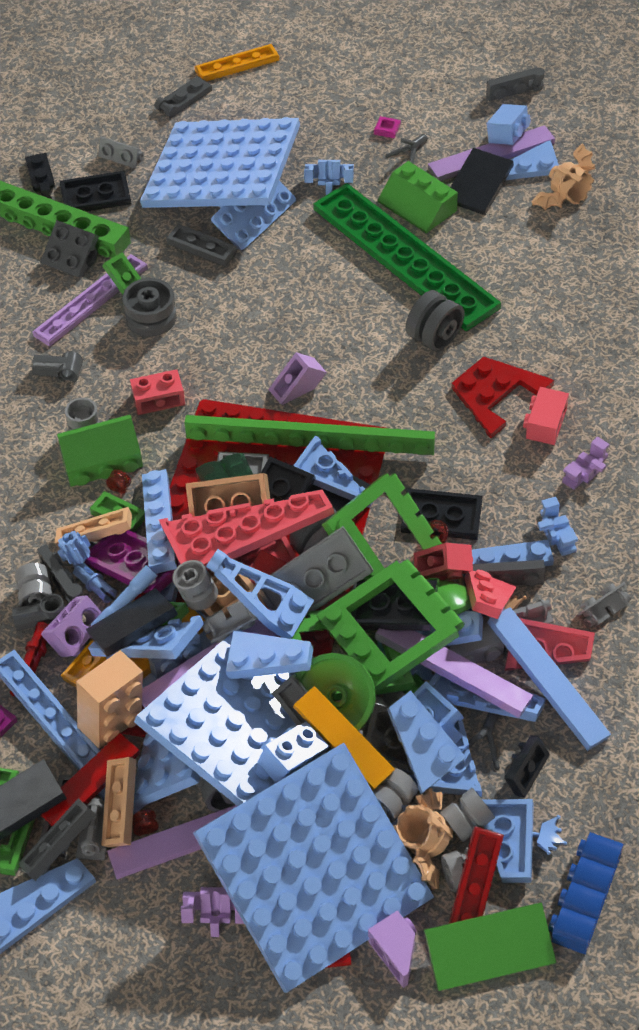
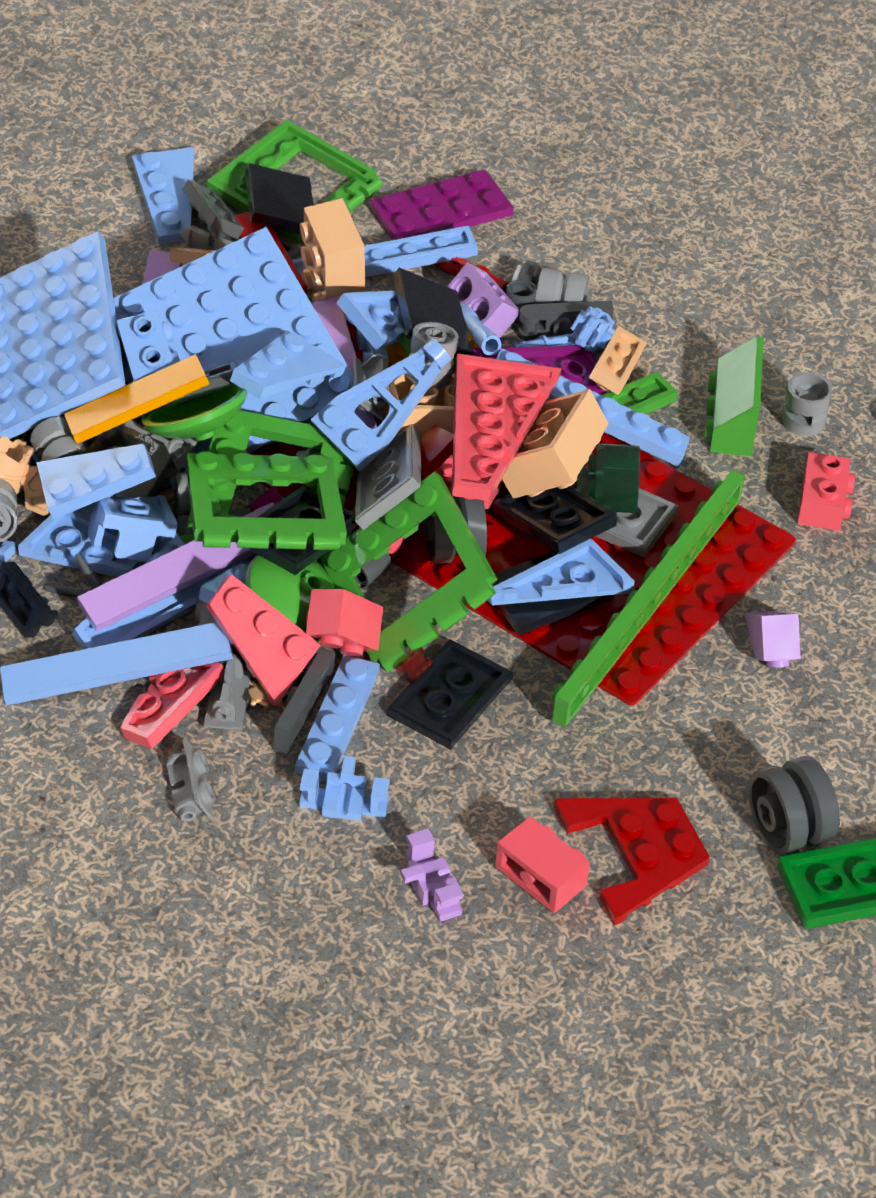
camera: 110 degrees right, 5 degrees down
(118, 481) = (688, 411): clear red bush -> none

